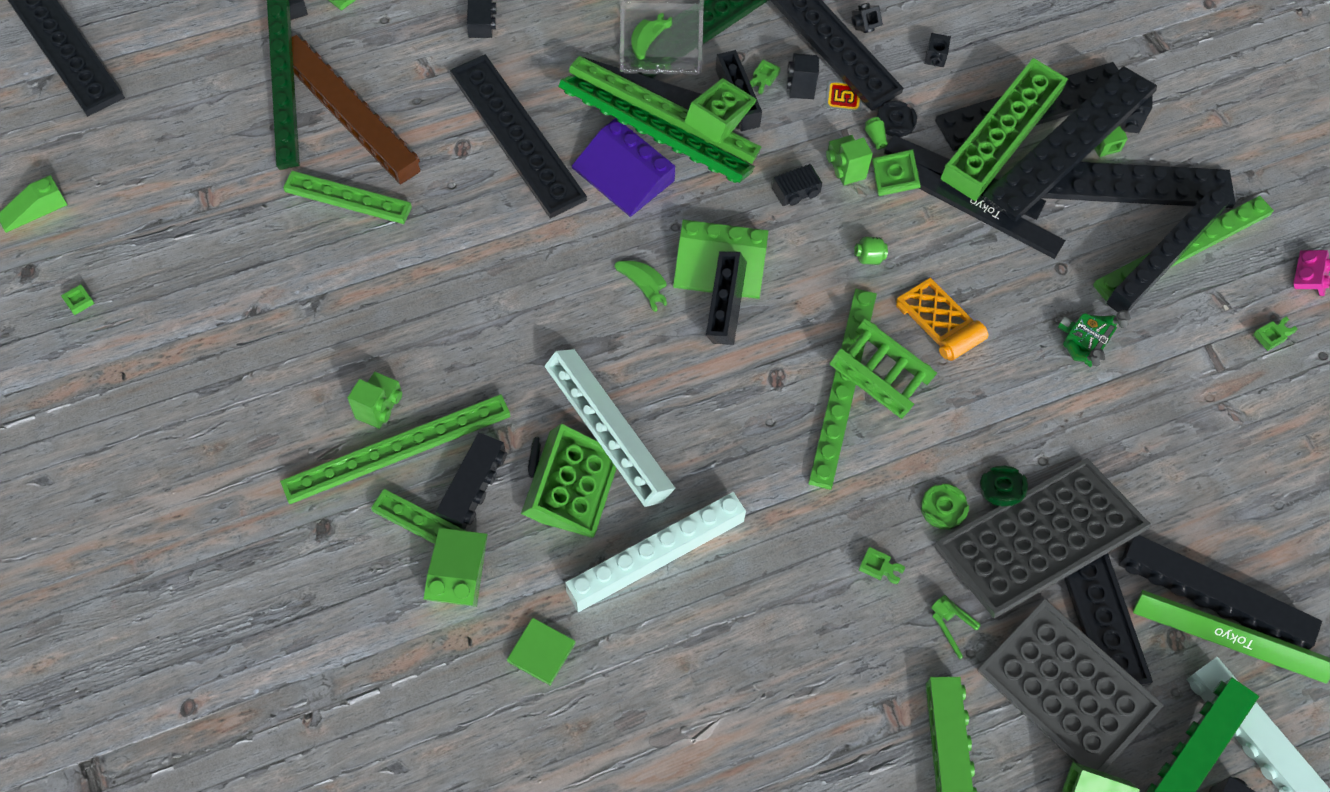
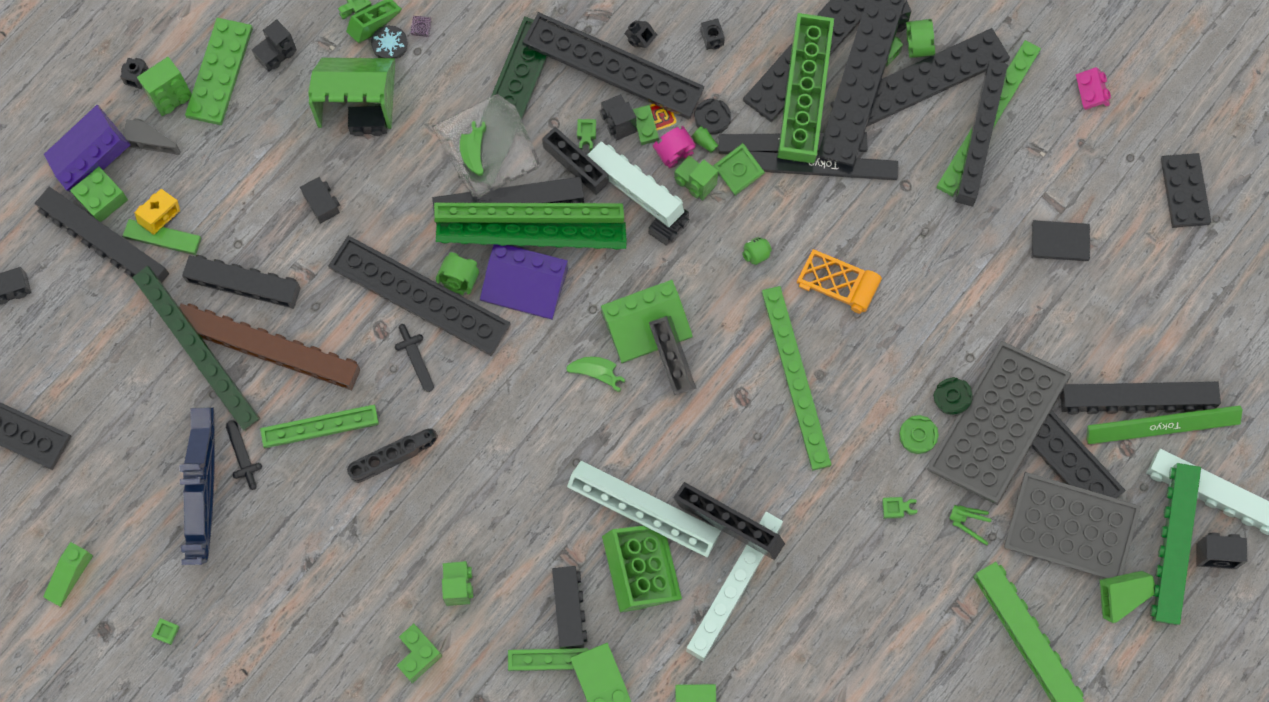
camera: 25 degrees left, 10 degrees up
(197, 188) = (199, 486): none -> dark blue piece
(257, 199) = (246, 468): none -> black sword
(294, 449) = (422, 653): none -> bright green brick
(364, 46) = (241, 281): none -> black brick
(387, 250) = (421, 441): none -> black piece
(394, 449) = (495, 613): bright green plate -> none
(476, 195) = (410, 345): none -> black sword
(534, 457) = (603, 566): black piece -> none
(563, 129) = (458, 273): none -> bright green brick
(688, 479) = (729, 521): none -> black brick
(719, 110) = (576, 193): bright green slope -> none
(786, 137) = (637, 185): none -> light aqua brick
(825, 96) = (646, 125): none -> bright green plate
(842, 120) = (674, 146): none -> dark pink brick
(870, 382) = (809, 364): bright green fence -> none
(1090, 335) = (956, 237): torso -> none
(1148, 142) = (920, 38): none -> bright green brick
(1205, 396) = (1060, 240): none -> black tile
(1273, 335) = (1087, 160): bright green plate -> none

